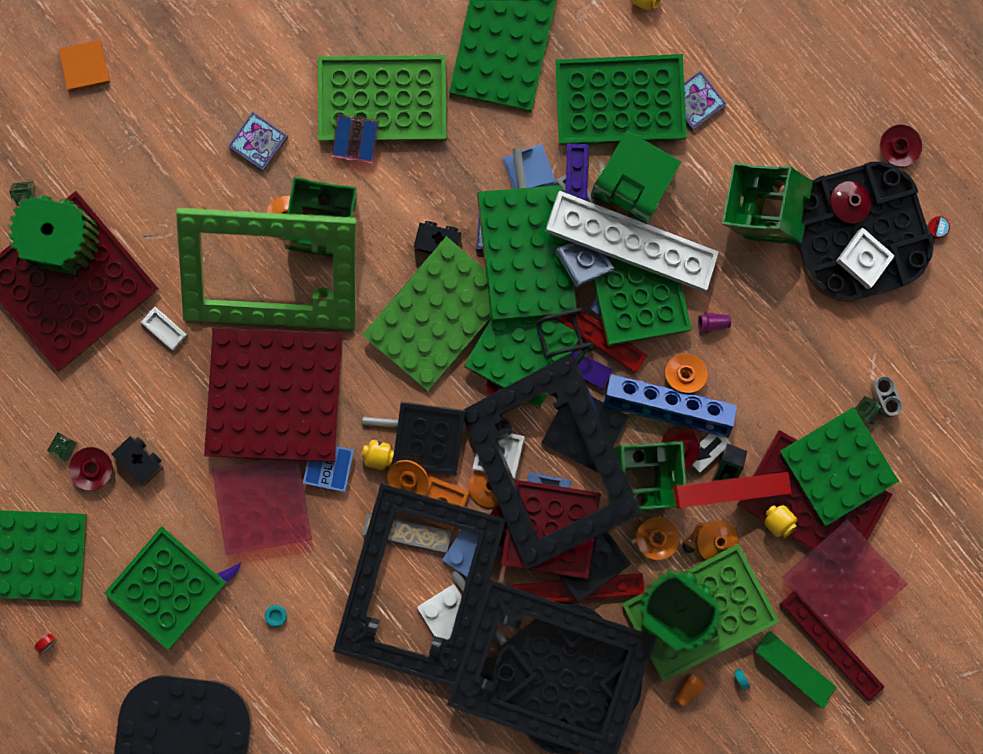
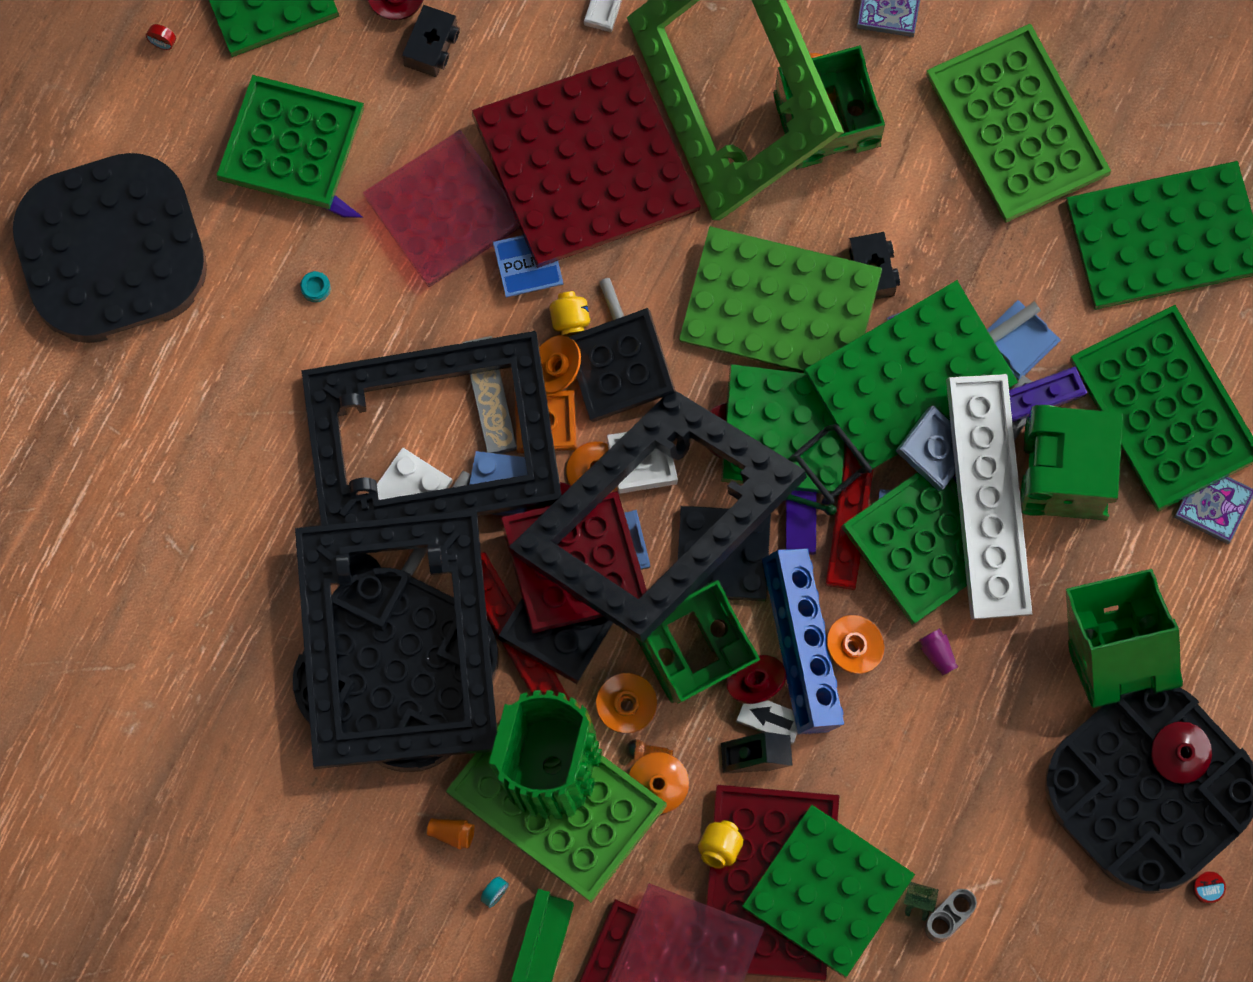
camera: 75 degrees right, 10 degrees down
(355, 138) = (950, 110): piece -> none
(731, 490) = (730, 756): red tile -> none
(865, 258) = (1116, 800): white plate -> none

